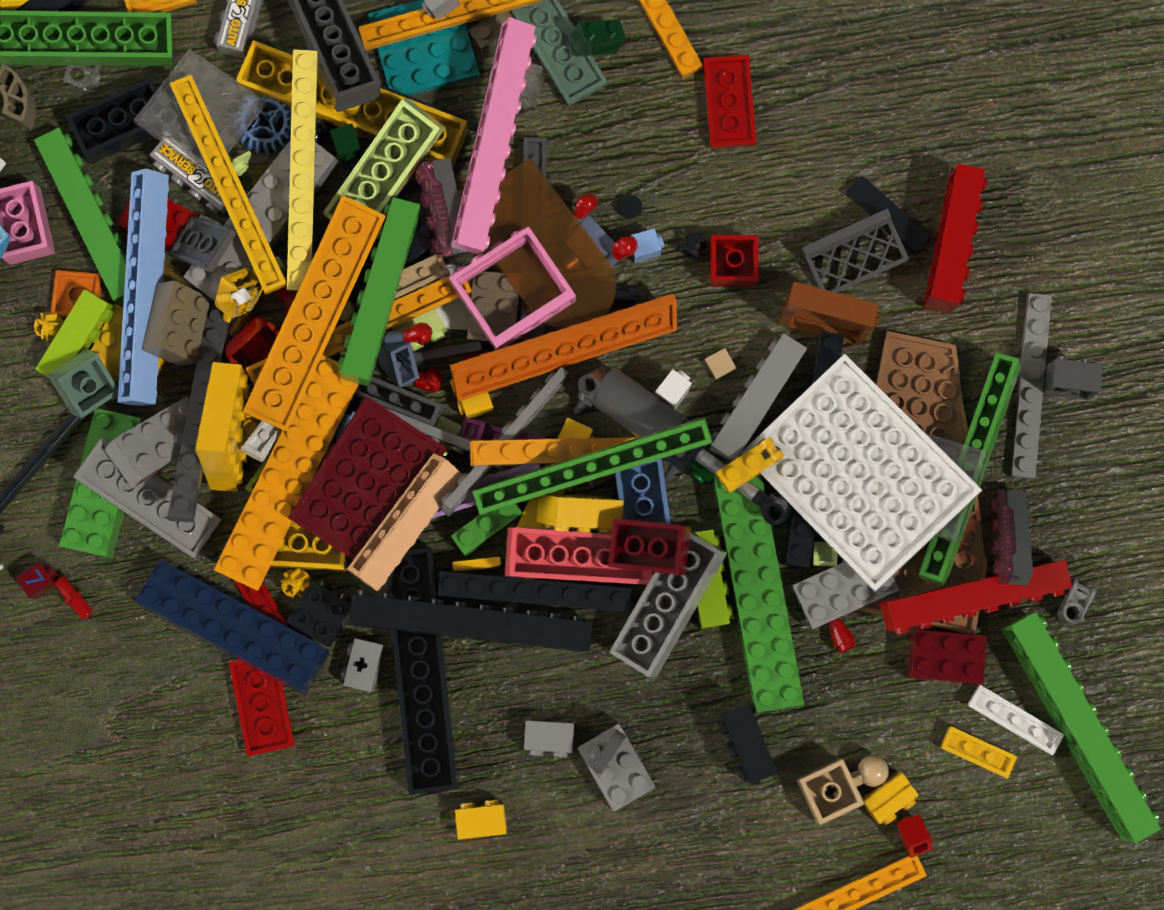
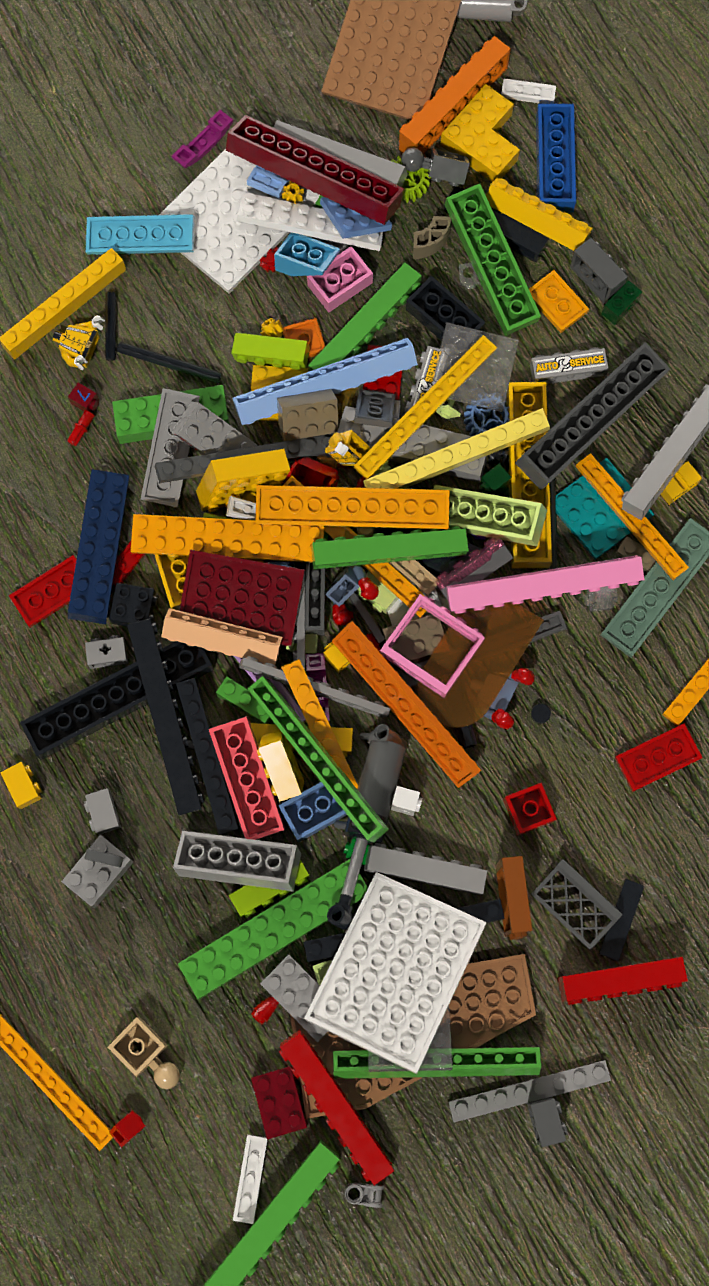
camera: 70 degrees right, 5 degrees down
(83, 383) = (237, 369): sand green brick -> none
(295, 583) = (149, 578): yellow gear -> none
(477, 564) = (213, 705): yellow tile -> none
(597, 37) = (662, 634): dark green brick -> none
(648, 245) = (514, 737): light blue brick -> none
(649, 546) = (270, 826): dark red brick -> none
(693, 246) = (529, 774): black wheel -> none
(720, 364) = (444, 831): tan tile -> none
(747, 744) = (150, 966): black brick -> none
(749, 465) = (367, 881): yellow plate -> none
(889, 798) = (150, 1097): yellow brick -> none
(978, 752) = (213, 1157): yellow plate -> none
(1011, 537) = (394, 1118): piece -> none

